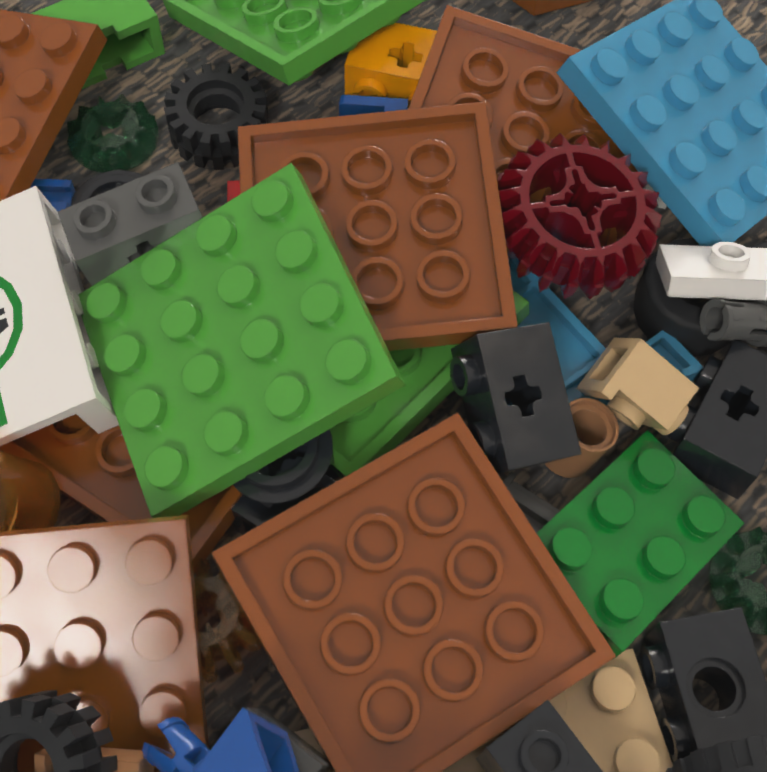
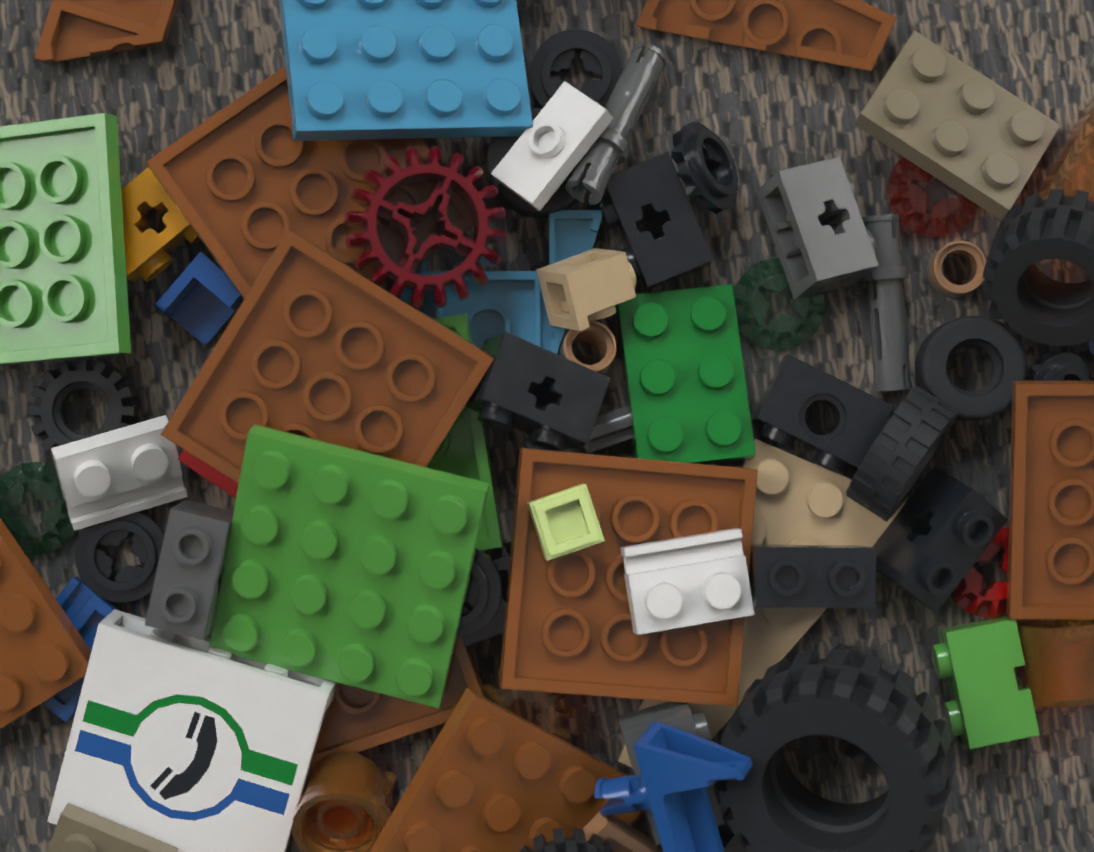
camera: 45 degrees left, 25 degrees up
(175, 131) = (118, 473): none -> white plate
(421, 495) = (565, 521): none -> yellowish green tile
(456, 663) = (687, 581): none -> white plate

